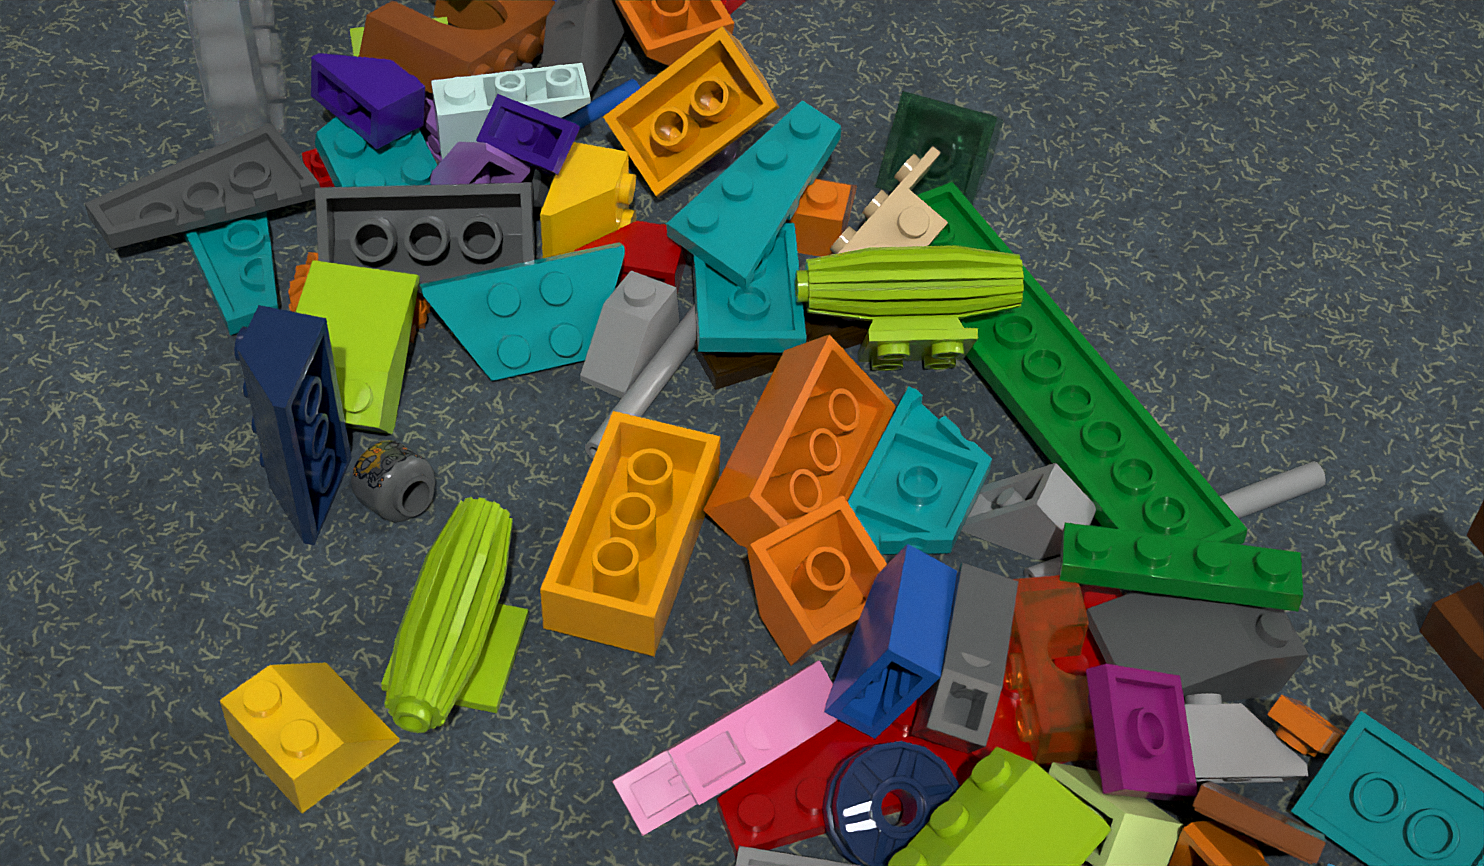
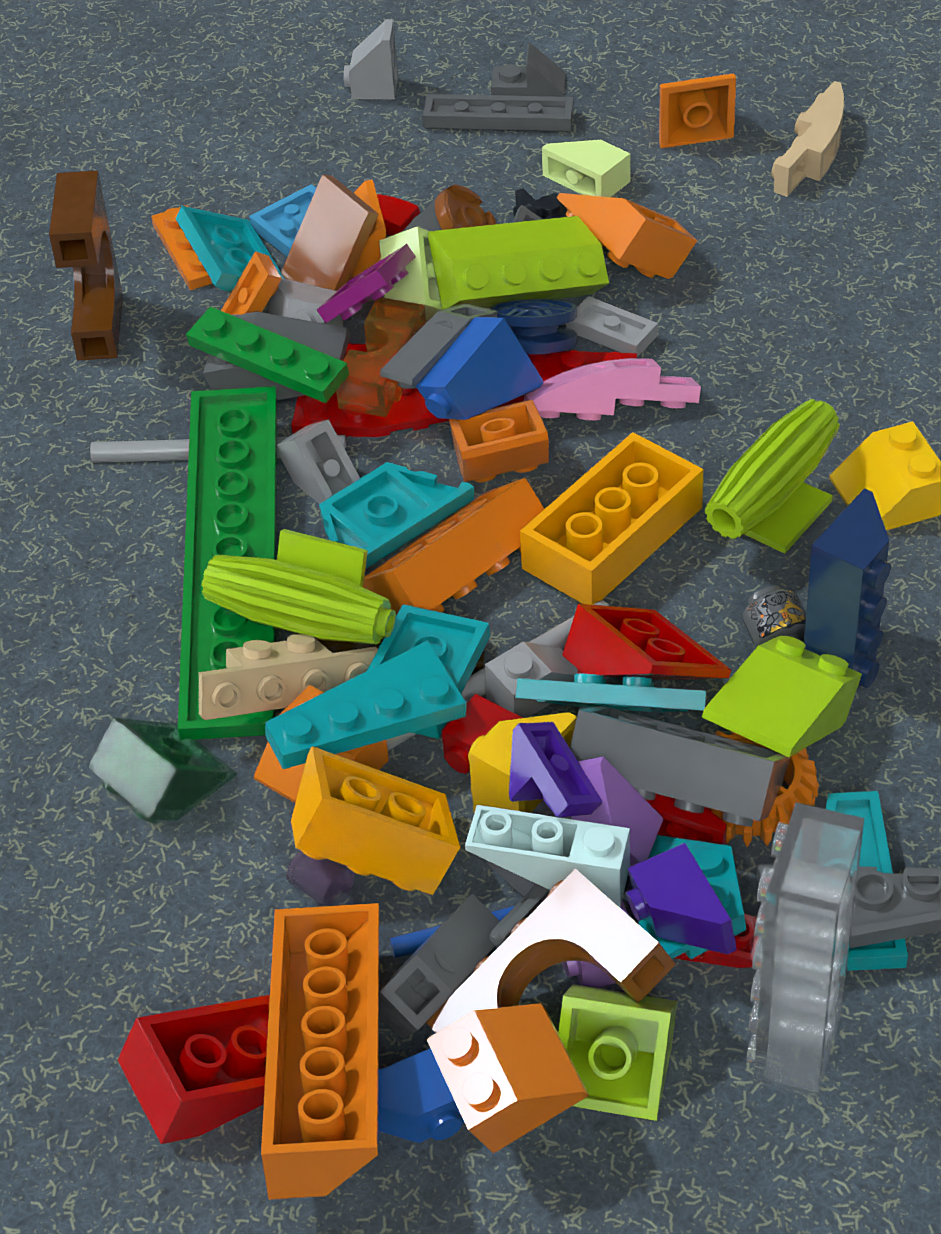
camera: 150 degrees left, 5 degrees down
(505, 330) = (636, 644): none -> red slope

